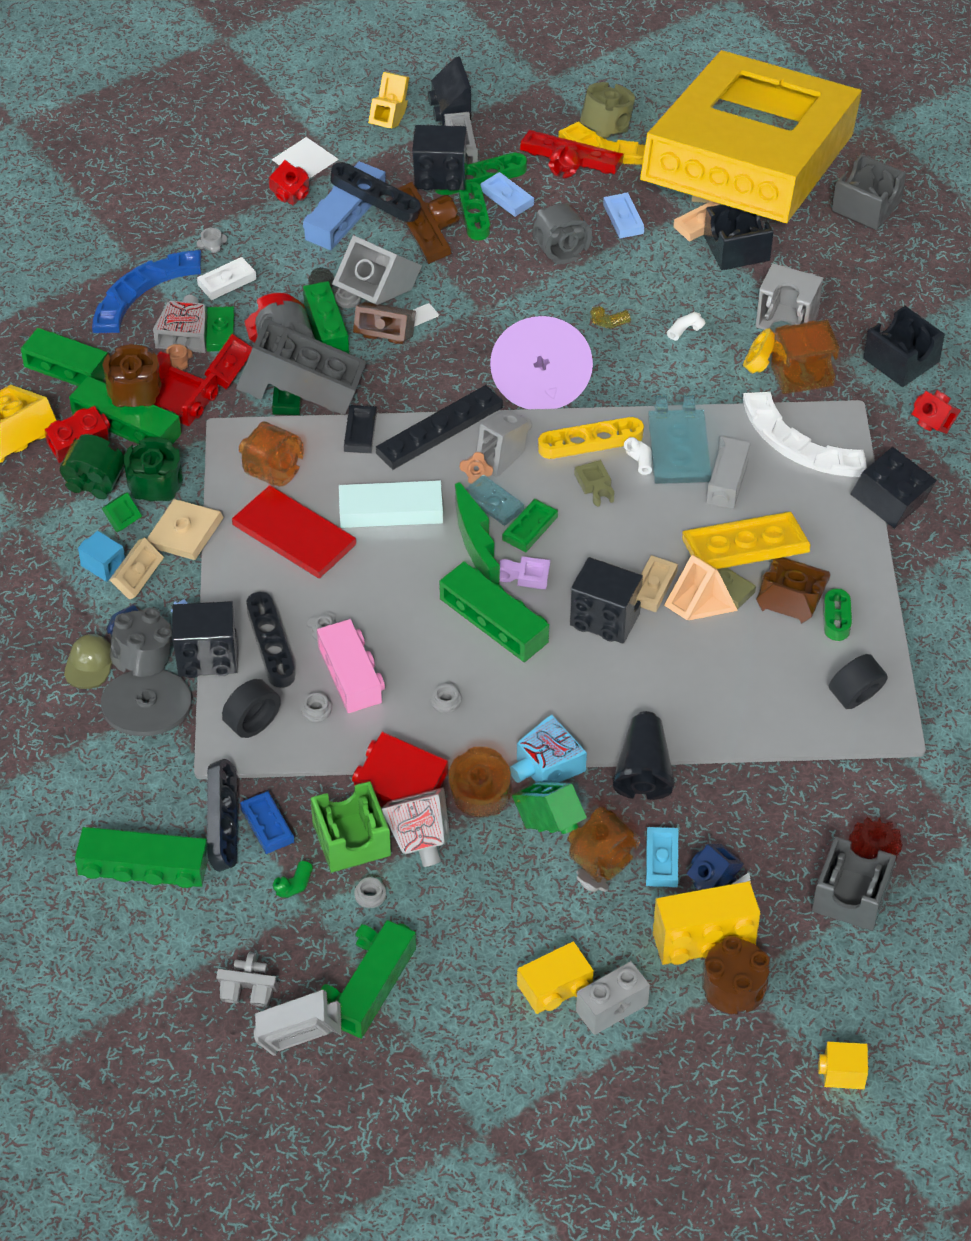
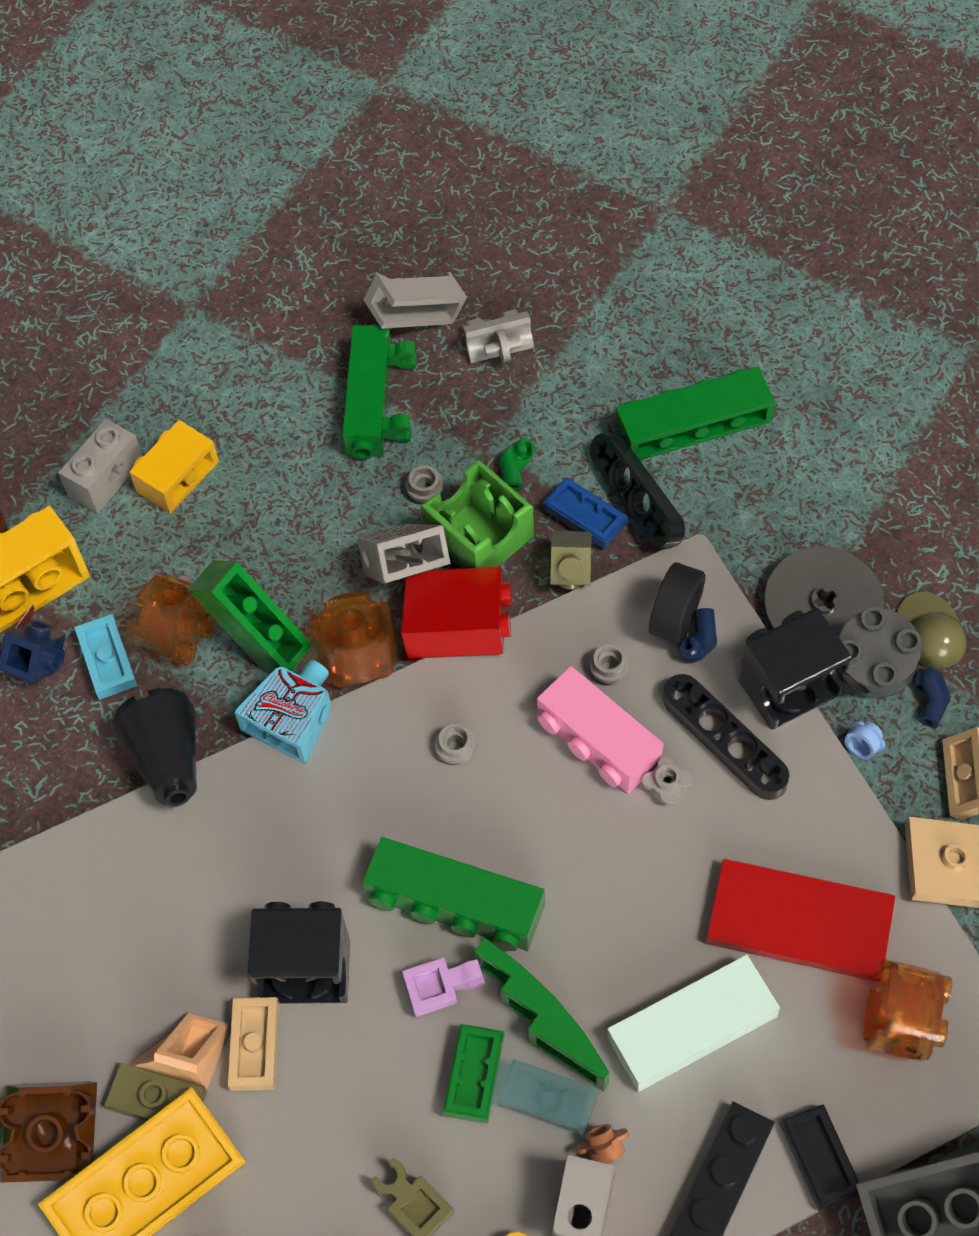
camera: 160 degrees right, 10 degrees up
(299, 781) = (571, 559): none -> olive brick

